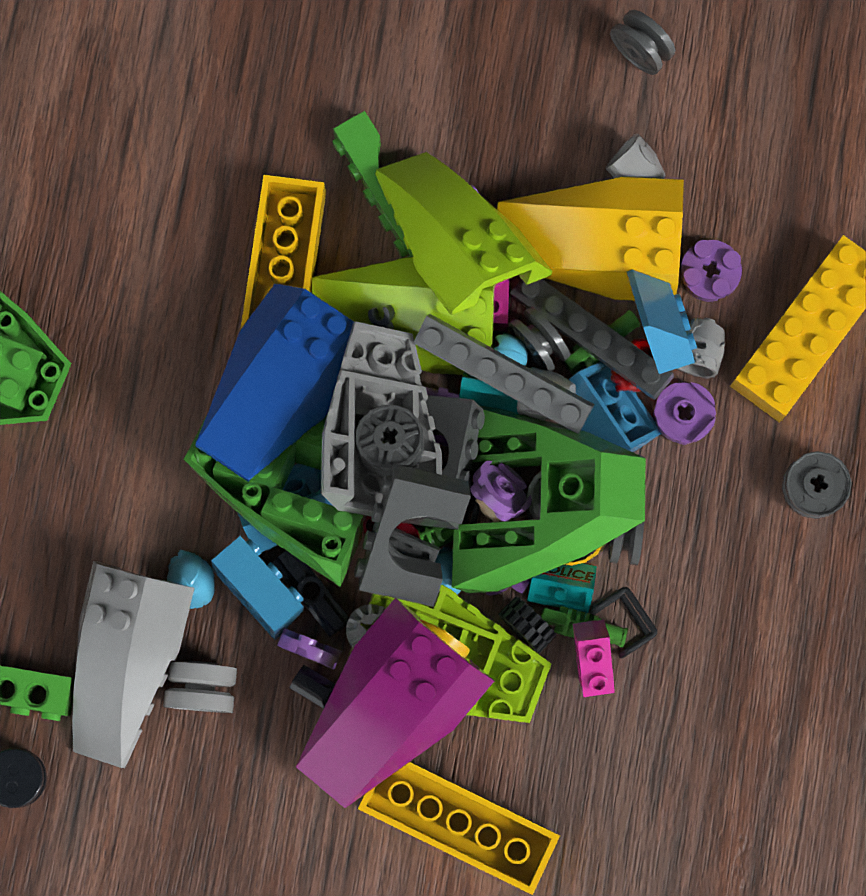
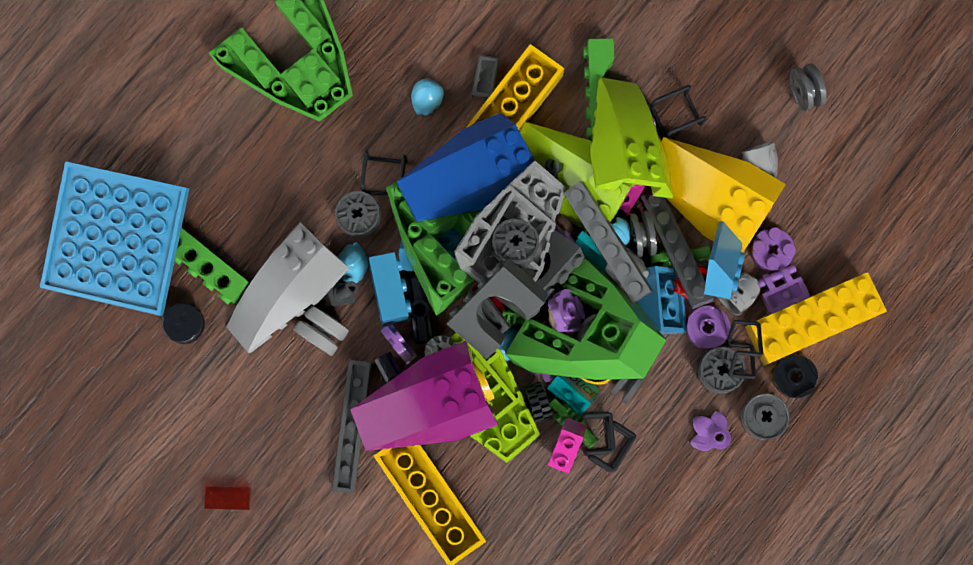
camera: 30 degrees right, 0 degrees up
(134, 432) = (403, 162): none -> black piece
(153, 498) = (358, 202): none -> dark grey wheel
(166, 312) = (426, 96): none -> medium azure hair
(199, 629) = (339, 295): none -> dark grey bracket
(228, 247) = (485, 77): none -> dark grey plate
(310, 798) = (349, 438): none -> dark grey plate
(529, 157) = (700, 120): none -> black piece
(667, 628) = (631, 438): none -> black piece
(744, 444) = (709, 375): none -> dark grey wheel
(756, 320) = (784, 295): none -> medium lavender plate
(756, 415) = (751, 353): none -> black piece
(756, 540) = (708, 430): none -> medium lavender plate
(843, 410) = (798, 364): none -> black plate

